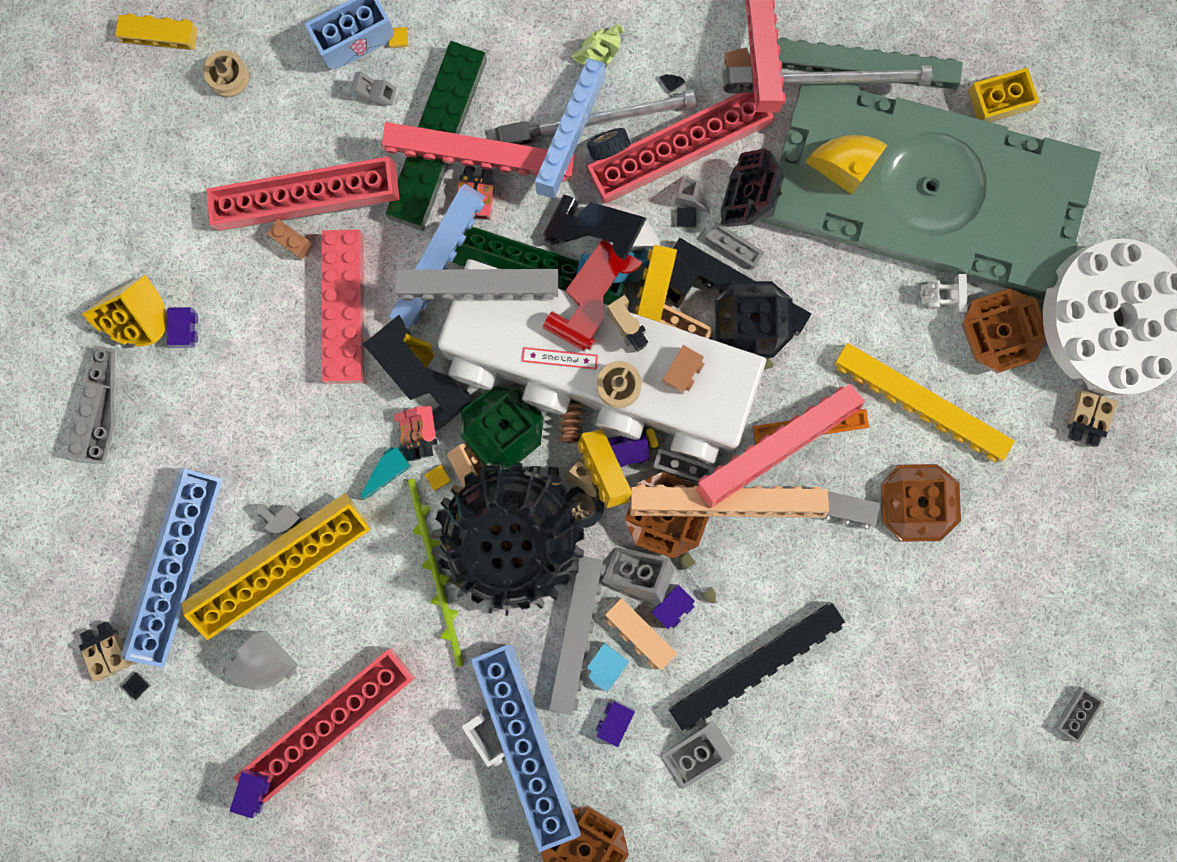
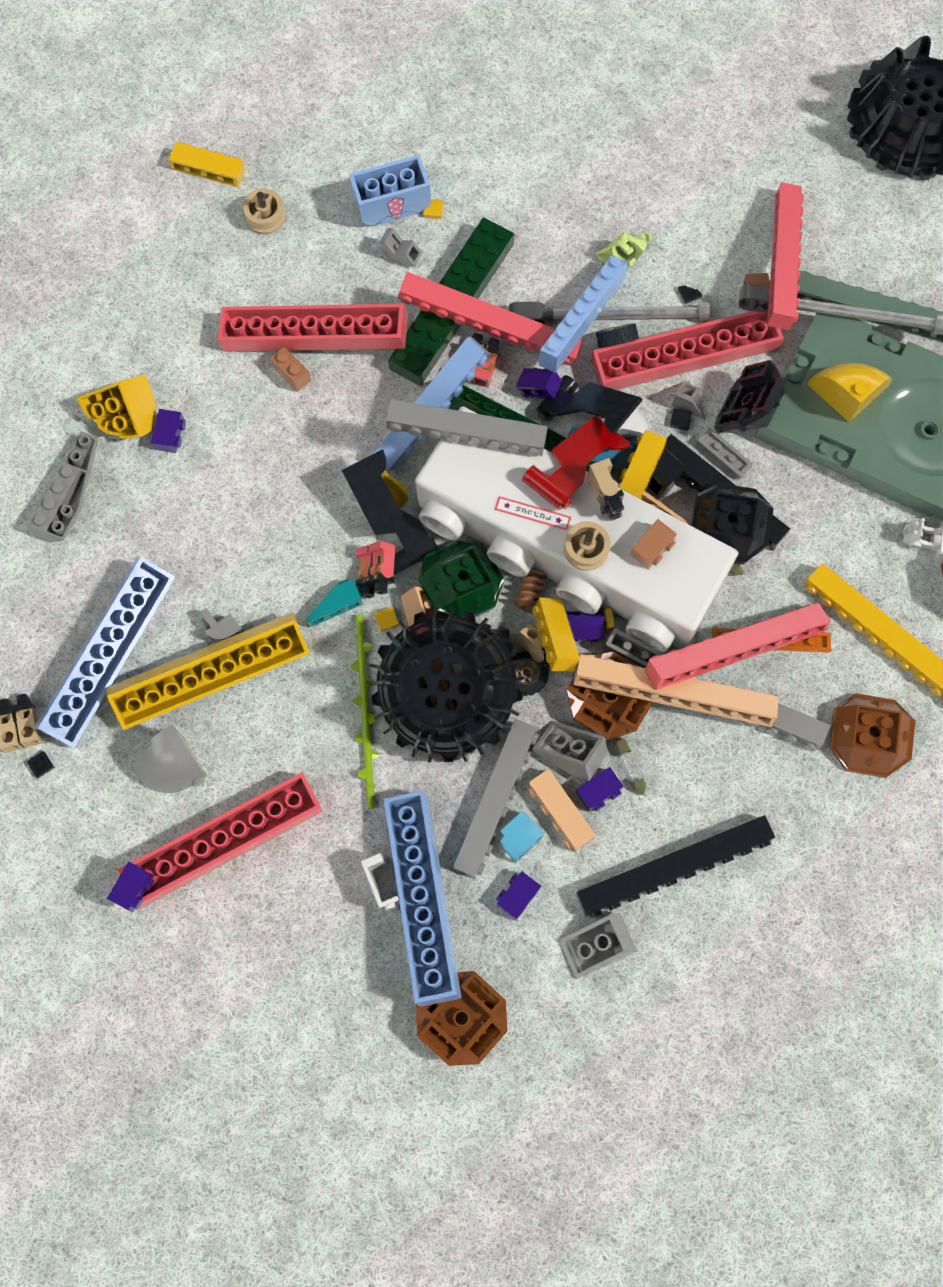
camera: 10 degrees right, 10 degrees down
(342, 307) = (327, 440): coral brick -> none
(539, 209) = (538, 383): none -> dark purple brick

